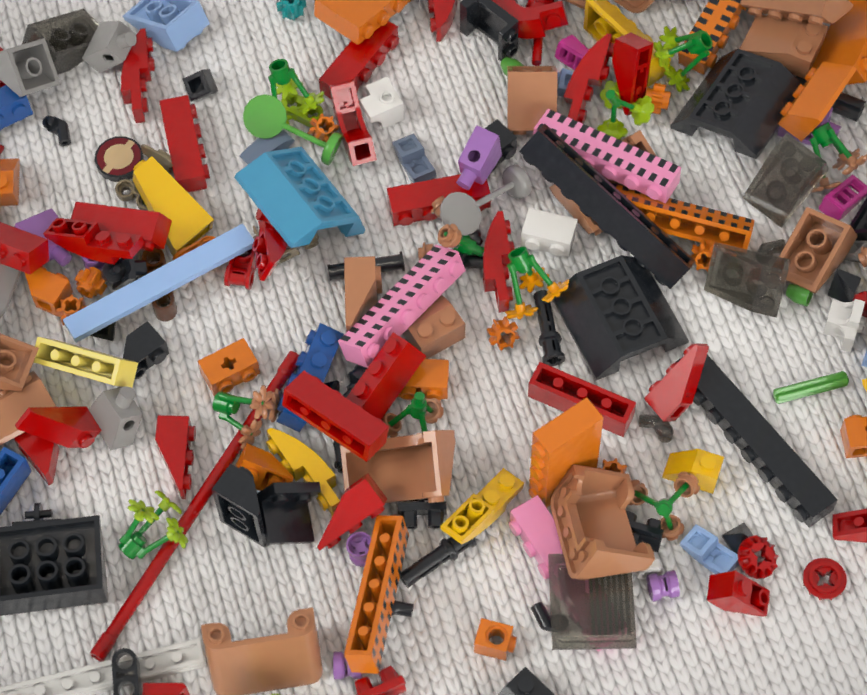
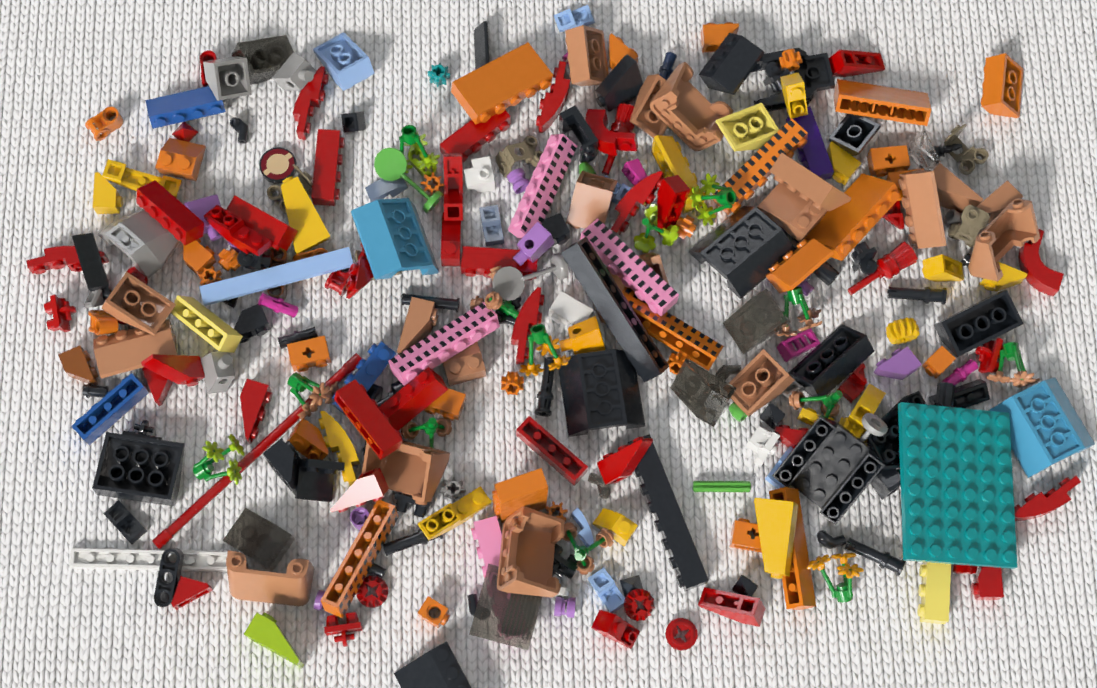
camera: 10 degrees right, 10 degrees up
(46, 640) = (125, 522): none -> black slope
(171, 318) = (278, 305): none -> dark pink pin
(206, 349) = (297, 336): none -> black pin
(241, 606) = (259, 539): none -> clear smoke slope
(369, 191) = (451, 243): none -> red slope
(406, 648) = (371, 601): none -> red gear
(407, 78) = (506, 158): none -> dark tan piece
(431, 98) = (518, 180): none -> medium lavender wheel
(464, 93) = (543, 184): none -> bright pink brick
(469, 474) = (448, 488): none -> light grey gear
(576, 253) = (584, 337): none -> light orange torso
(651, 477) = (585, 534): none -> light blue slope

